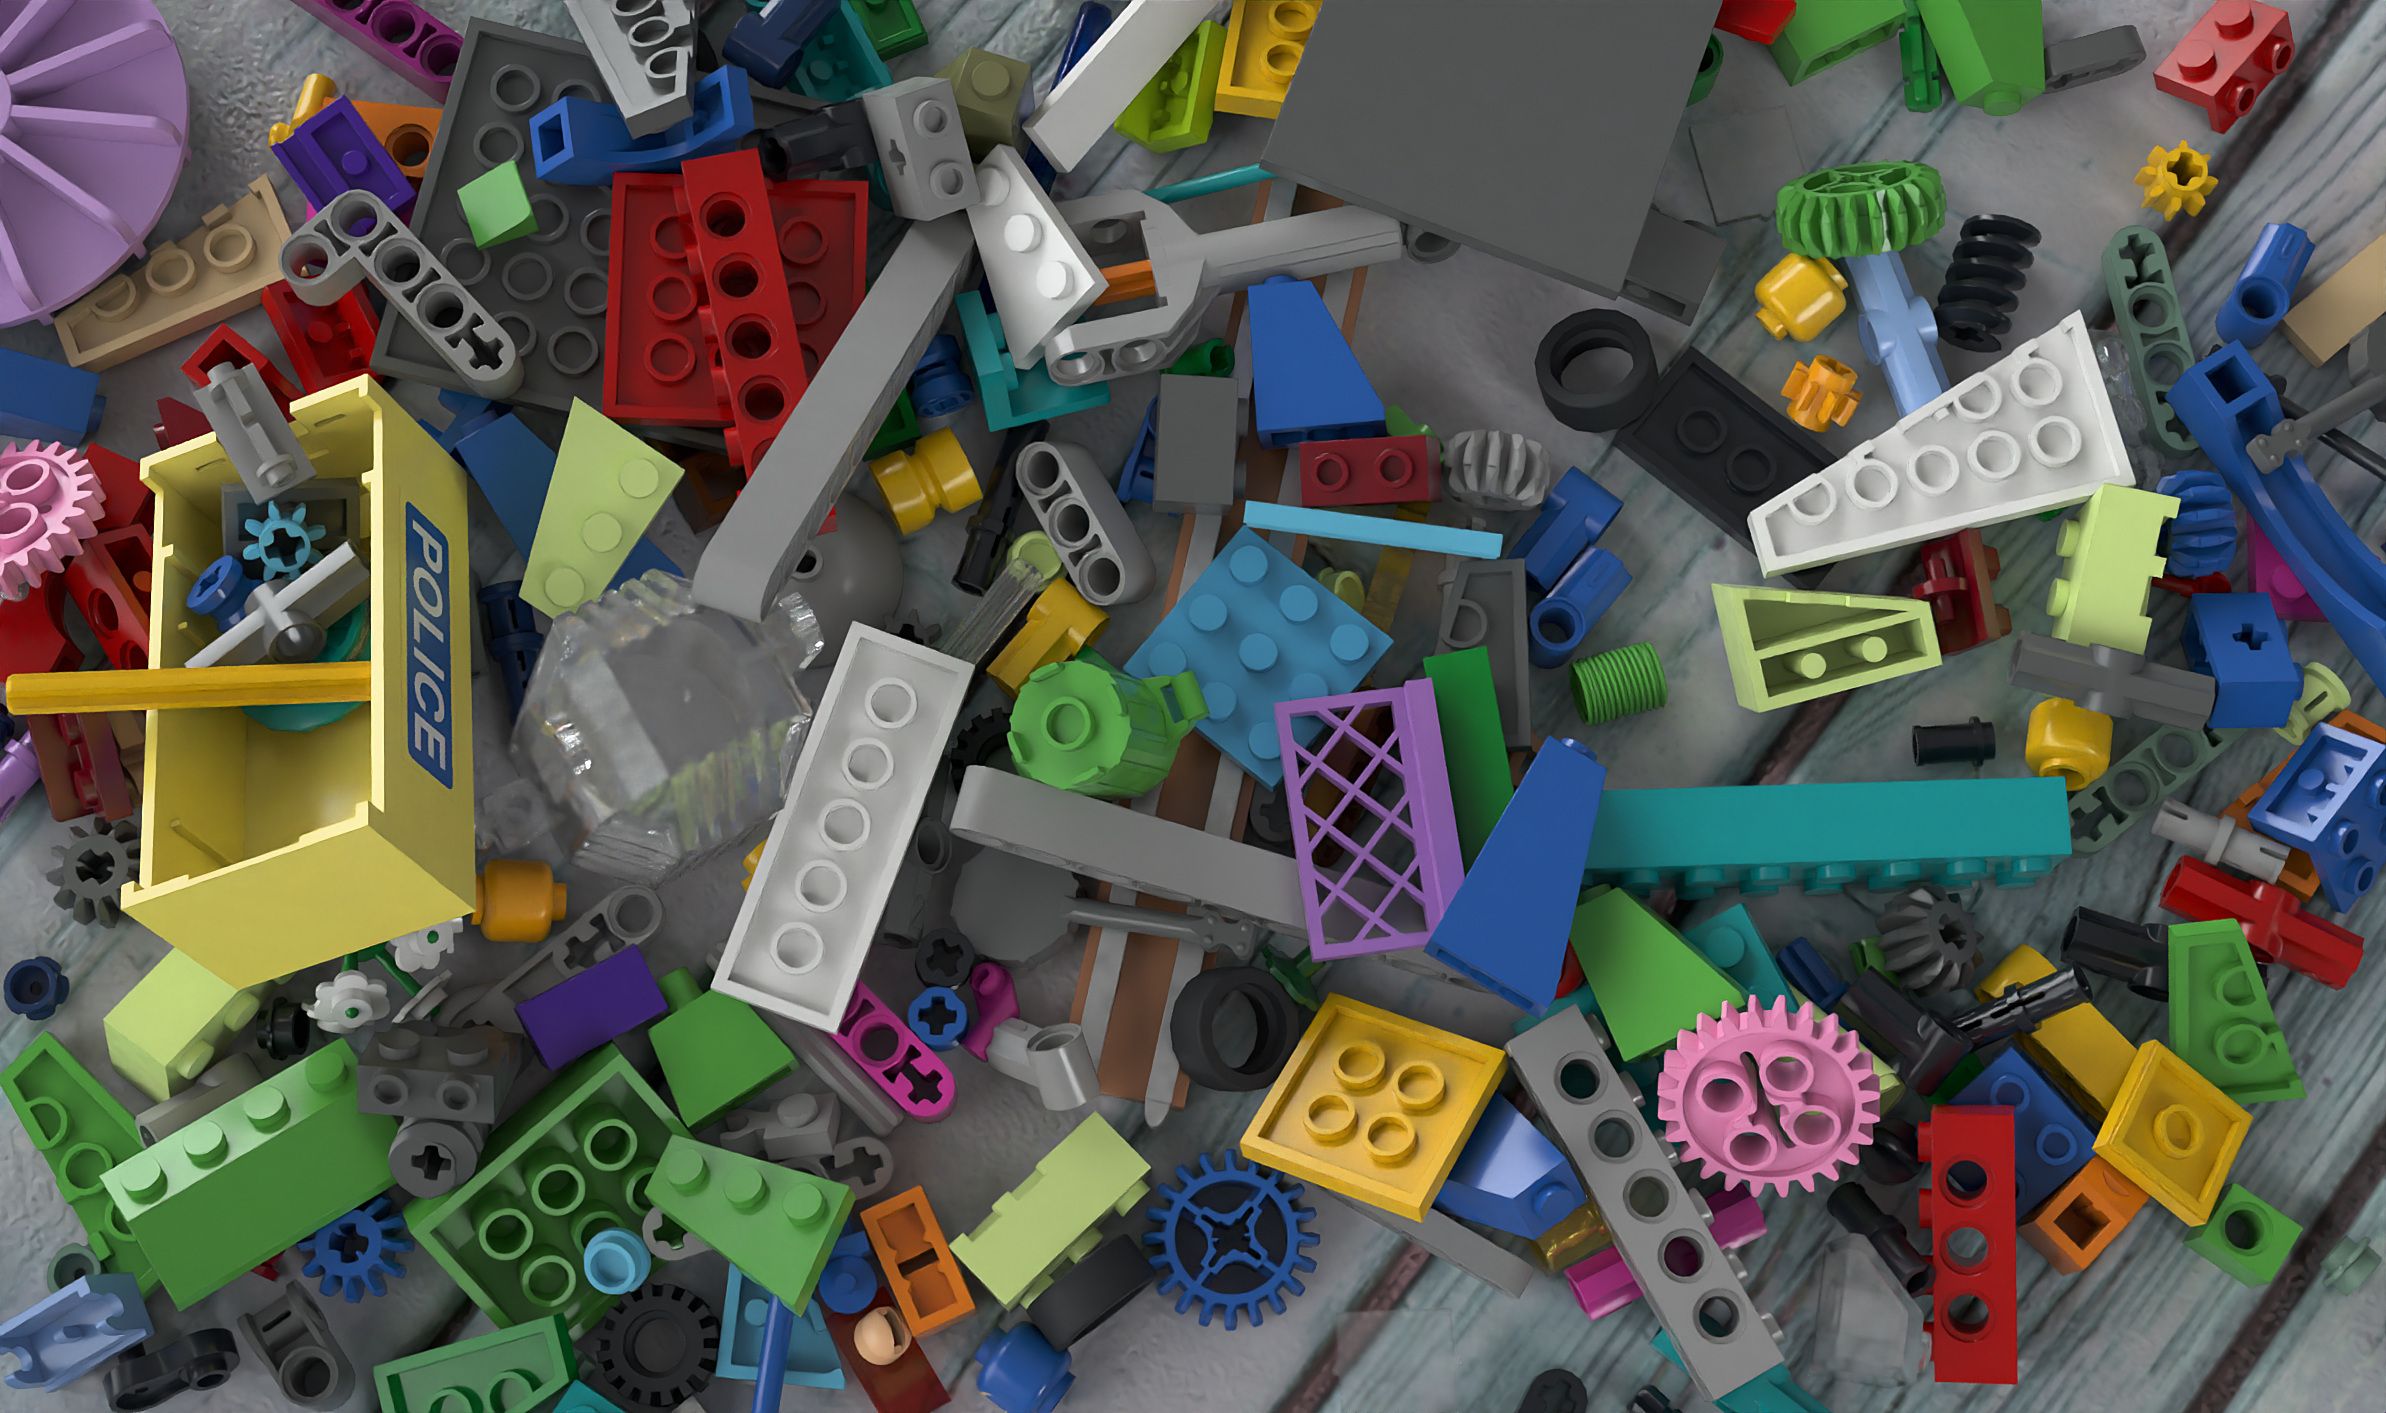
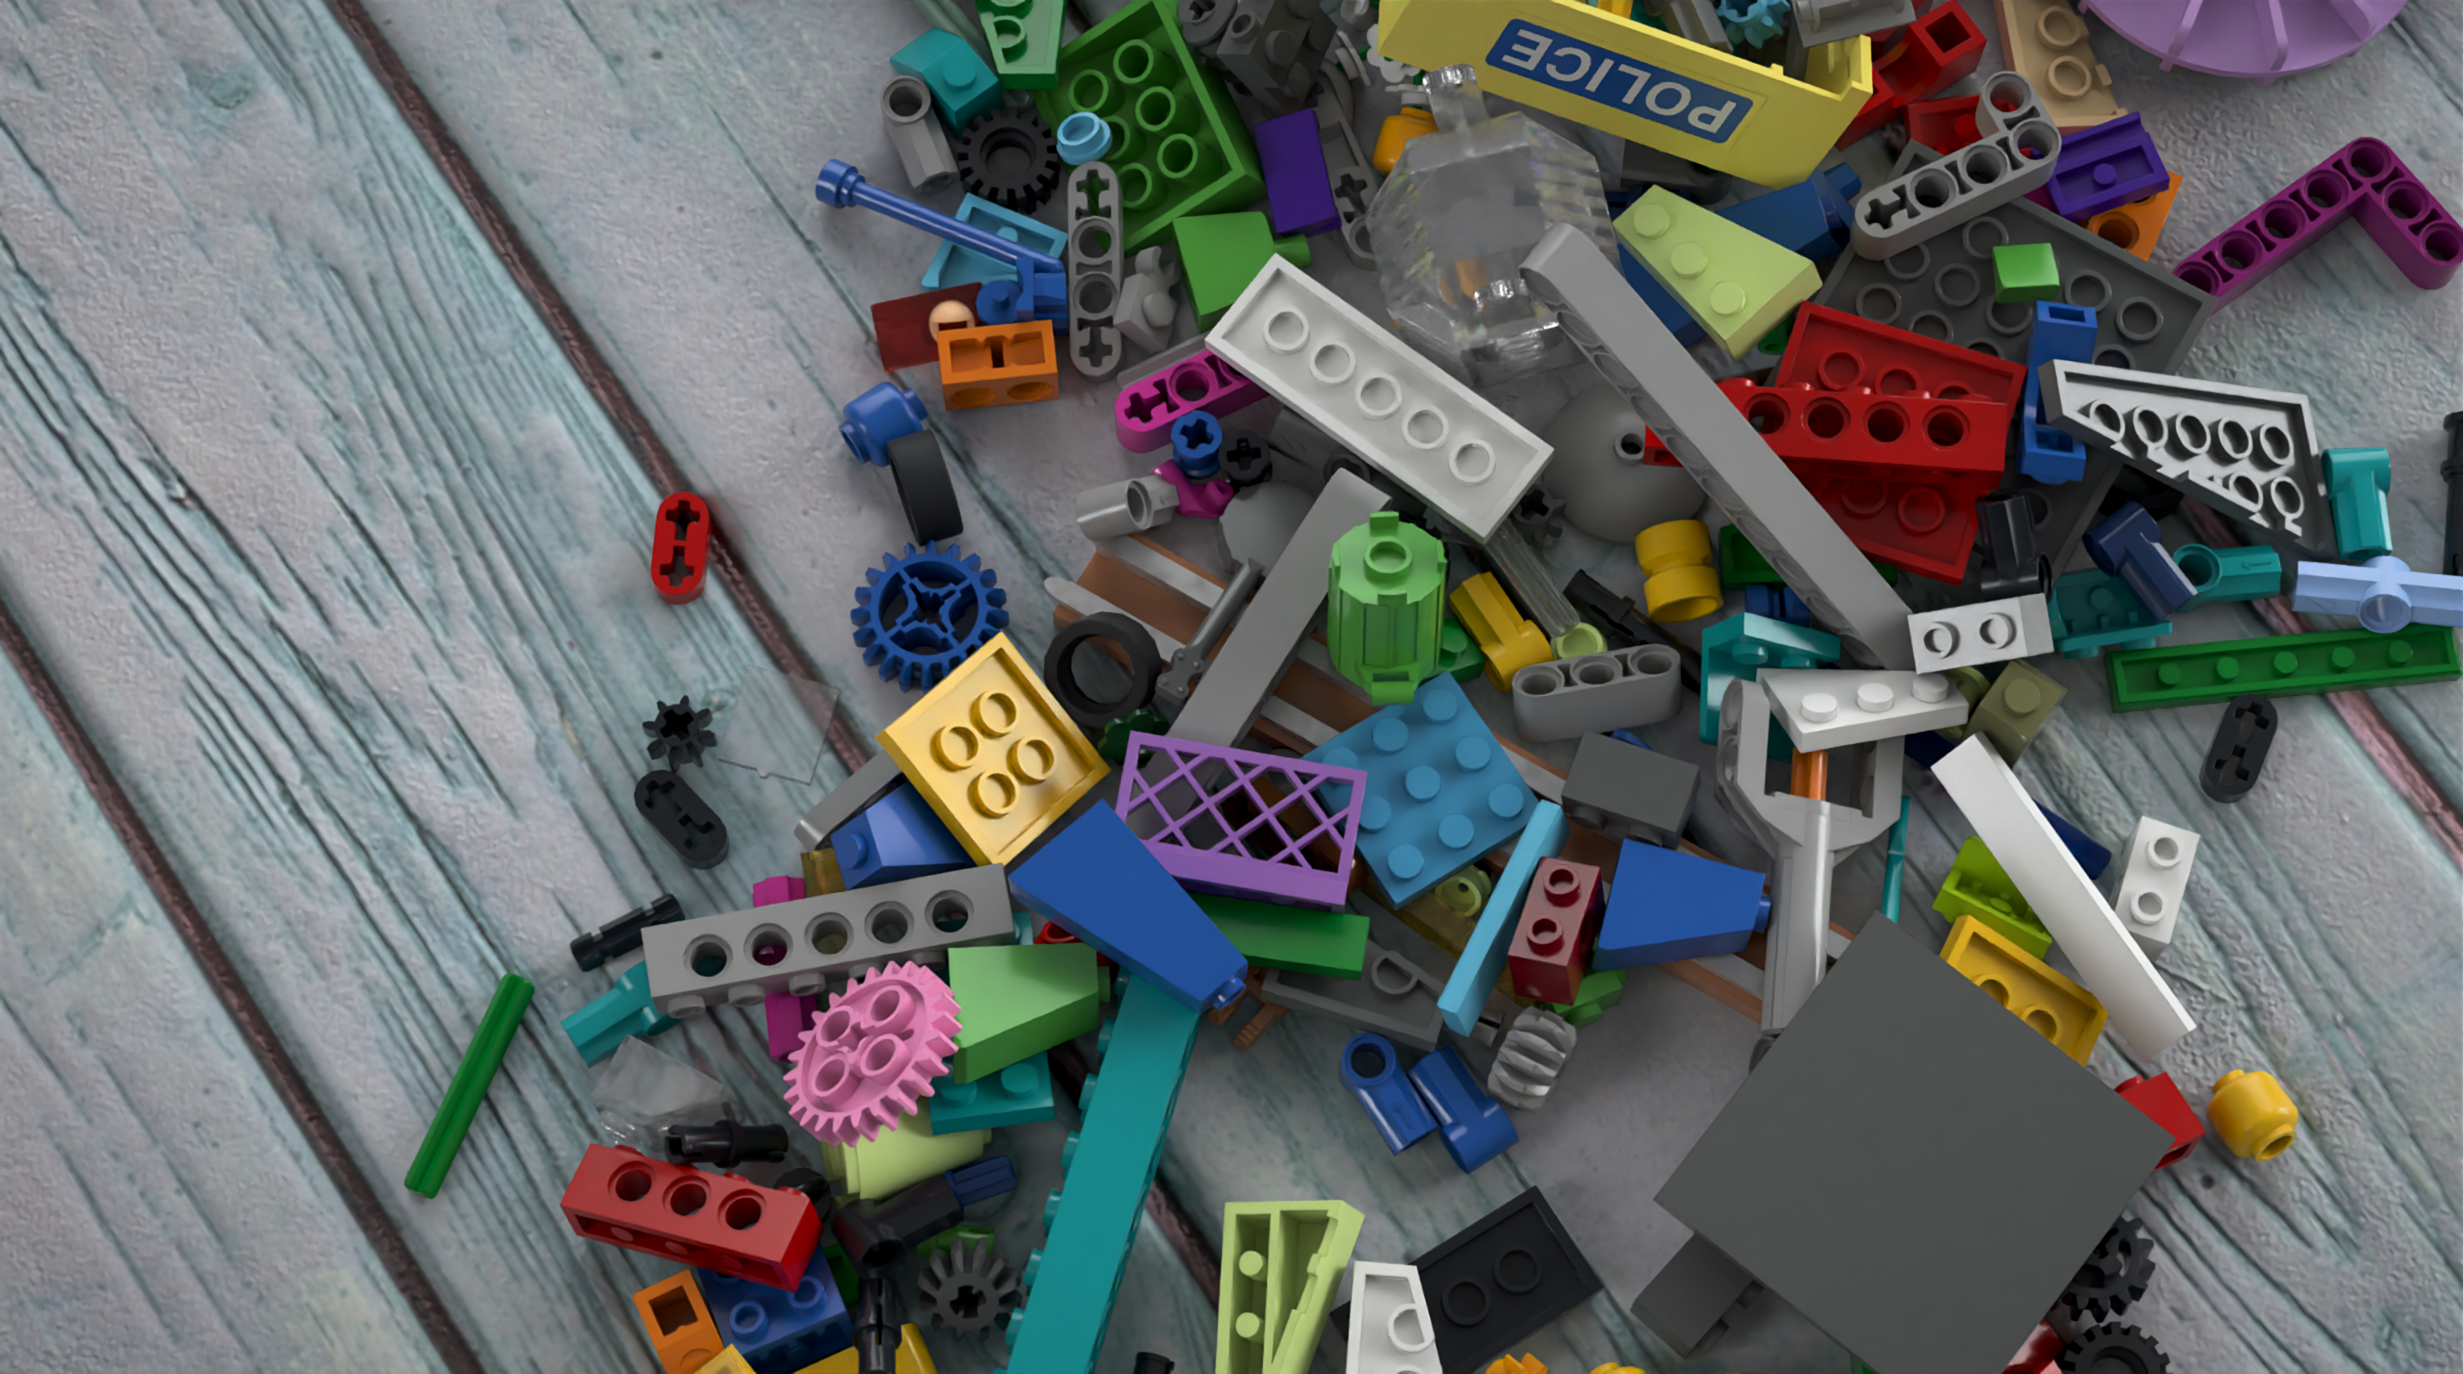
camera: 110 degrees right, 5 degrees down
(310, 103) = (2195, 182): yellow arm -> none
(754, 1213) = (1075, 235): bright green wing -> none
(1054, 1213) = (999, 477): yellowish green wedge -> none
(1204, 360) = (1716, 836): green pin -> none
(1586, 332) = (1571, 1211): black tyre -> none
(1618, 683) = (1300, 1105): bright green piece -> none

